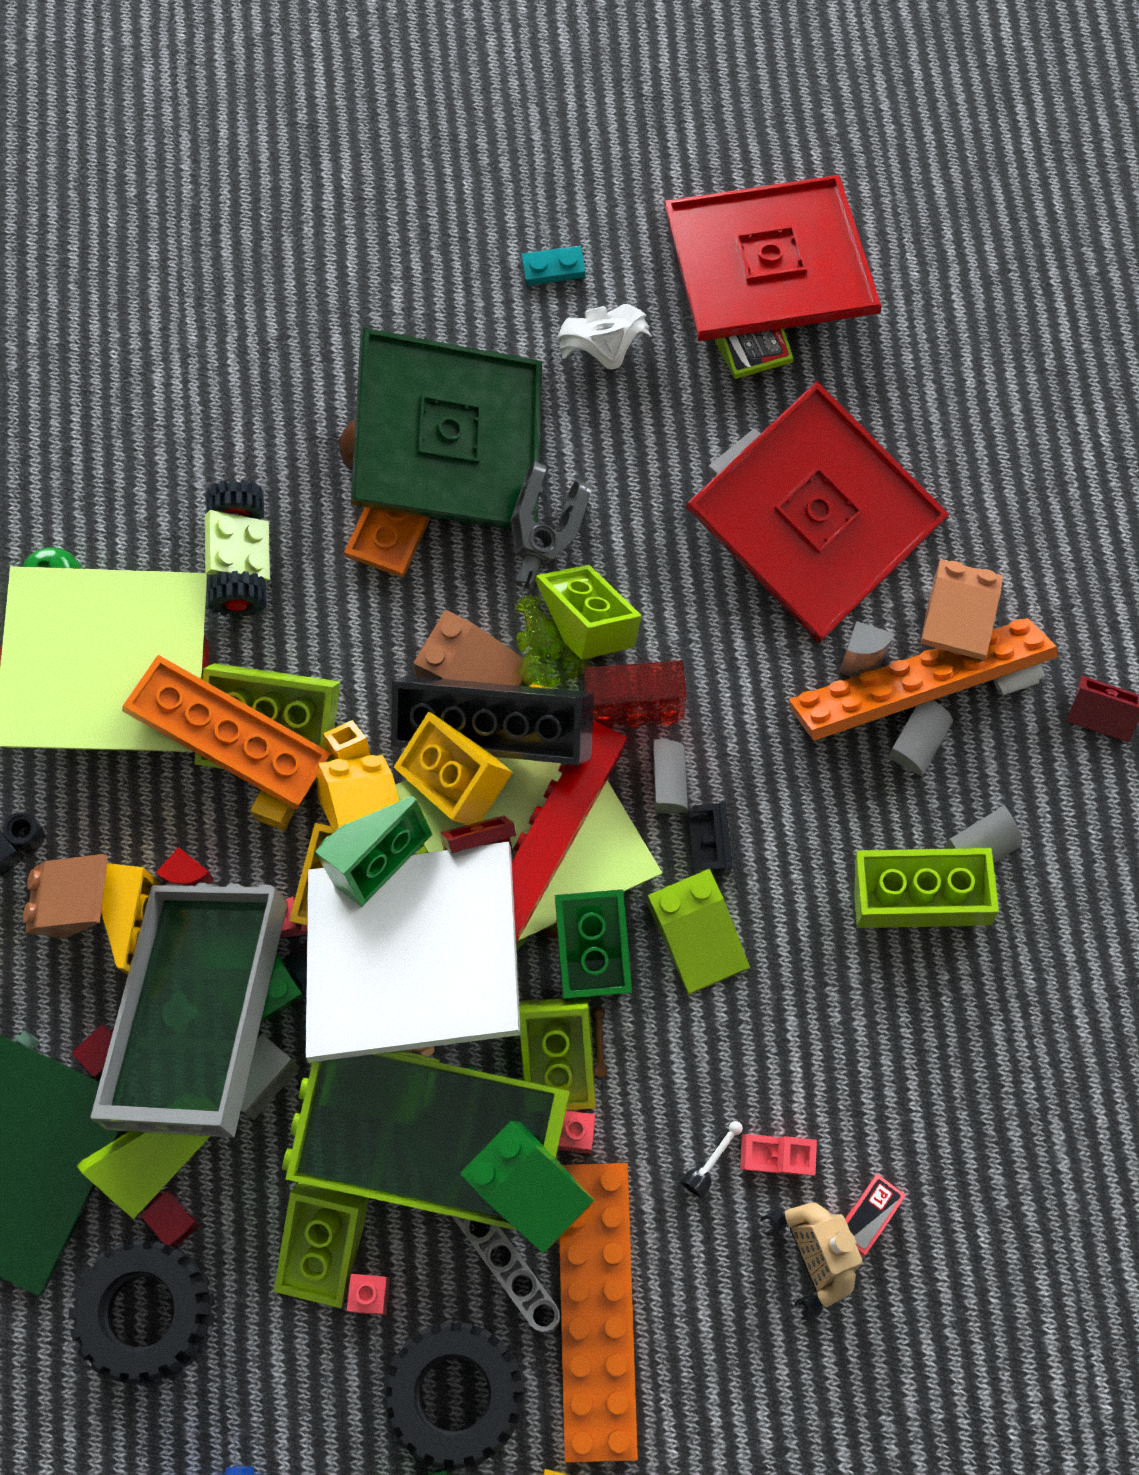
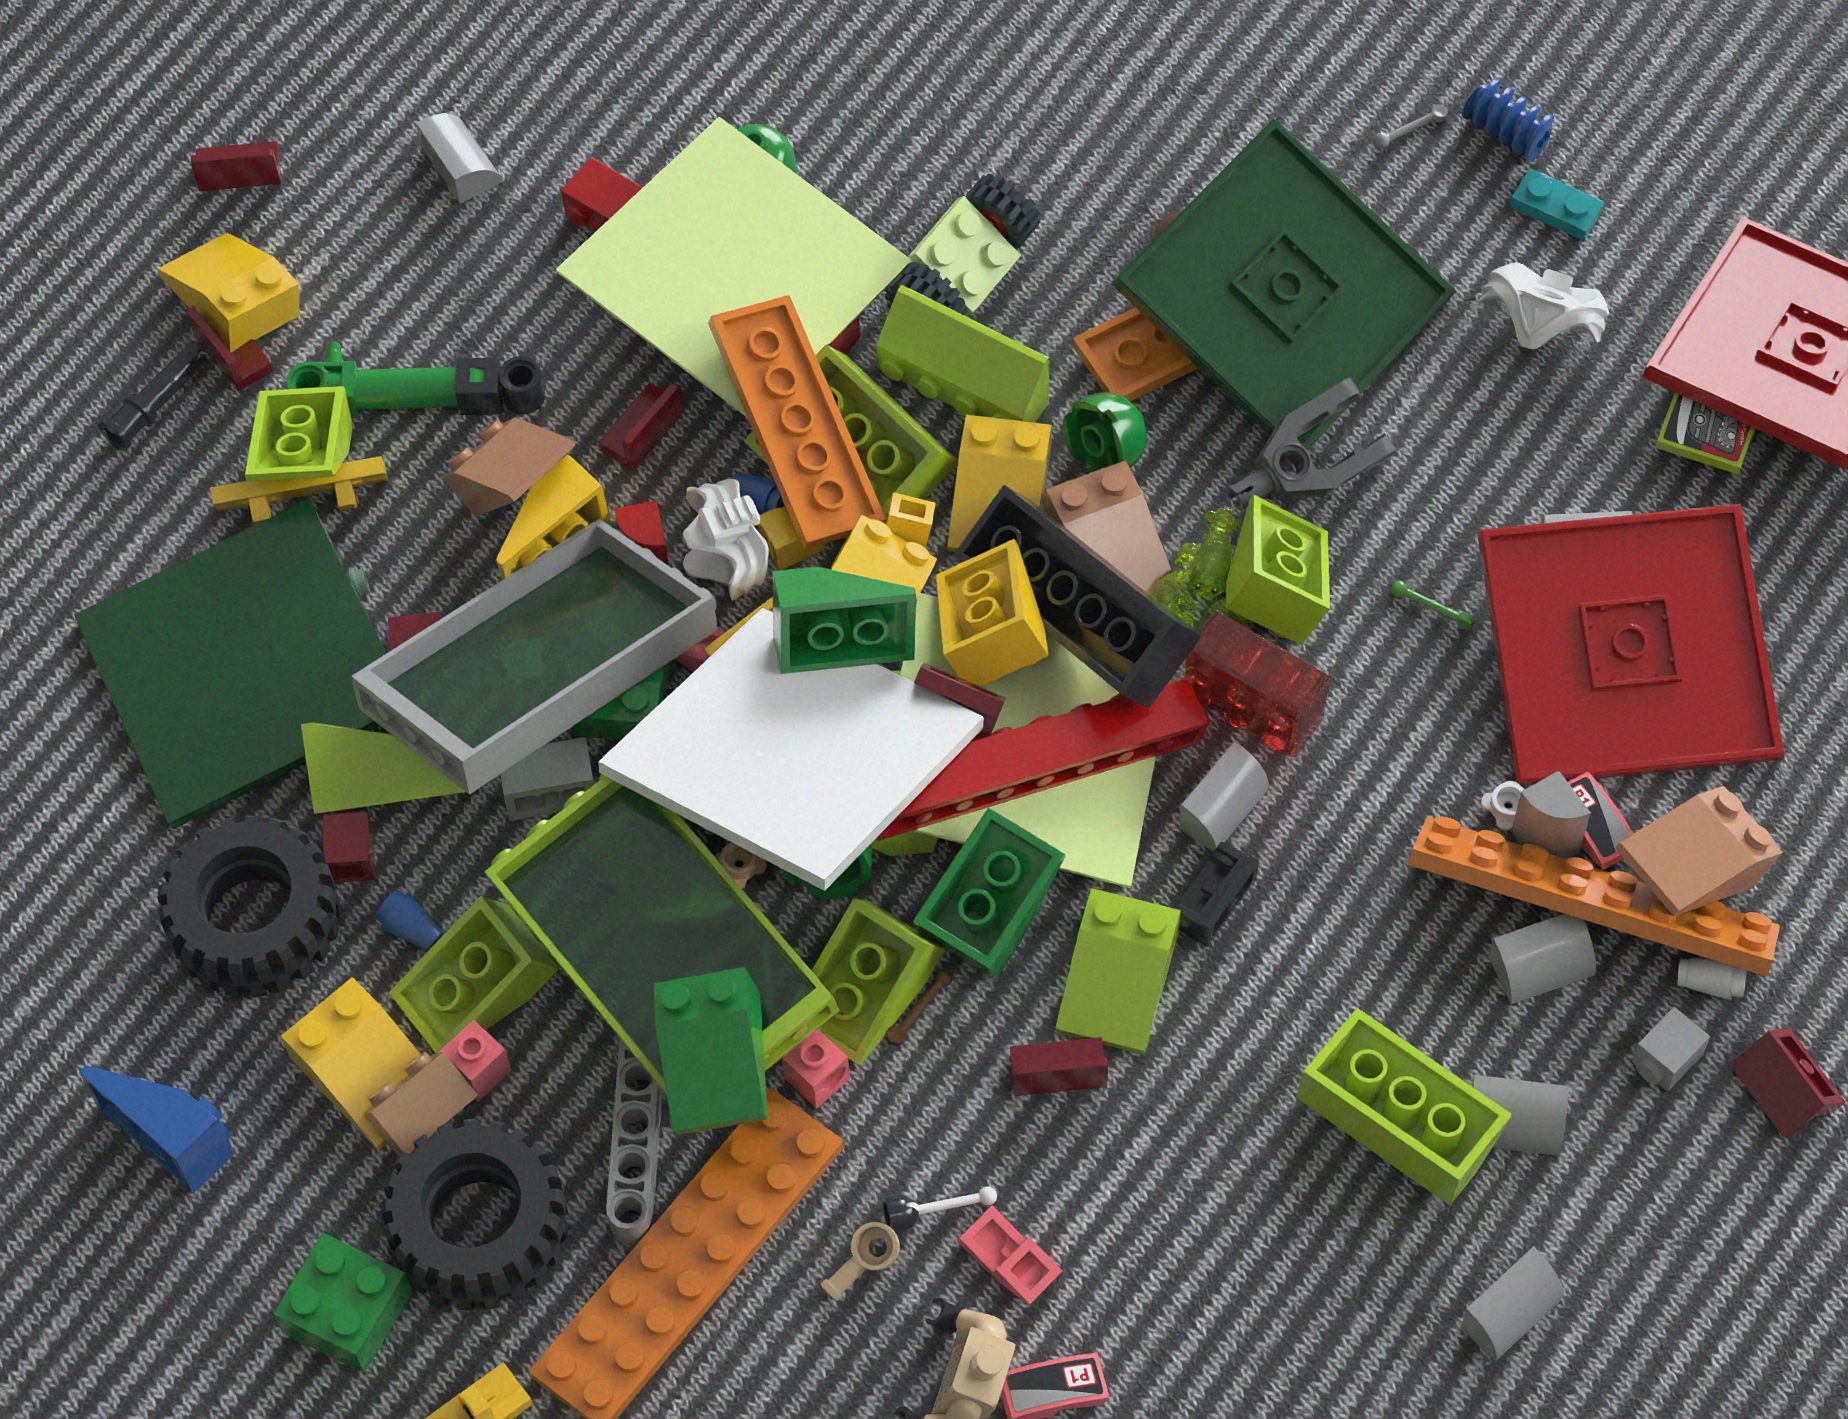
camera: 40 degrees right, 10 degrees down
(122, 801) = (643, 425): none -> dark red panel
(234, 793) = (761, 491): none -> blue cone
(241, 839) = (725, 539): none -> white piece
(250, 1237) = (408, 921): none -> blue cone
(293, 618) = (961, 361): none -> lime slope
(300, 1352) = (350, 1052): none -> yellow slope
(358, 1351) = (419, 1102): none -> medium nougat brick
(366, 669) = (996, 455): none -> yellow slope
(415, 599) = (1105, 431): none -> green cylinder
(439, 256) = (1438, 114): none -> light grey hinge
(486, 230) = (1508, 119): none -> blue piece
(659, 570) = (1463, 620): none -> bright green hinge
(702, 1227) = (864, 1257): none -> tan bar
(710, 1015) = (1058, 1066): none -> dark red panel
(827, 649) = (1494, 802): none -> white plate
(904, 632) = (1605, 825): none -> slope
(1033, 738) = (1670, 1049): none -> light grey brick
(1072, 957) = (1513, 1304): none -> light grey brick

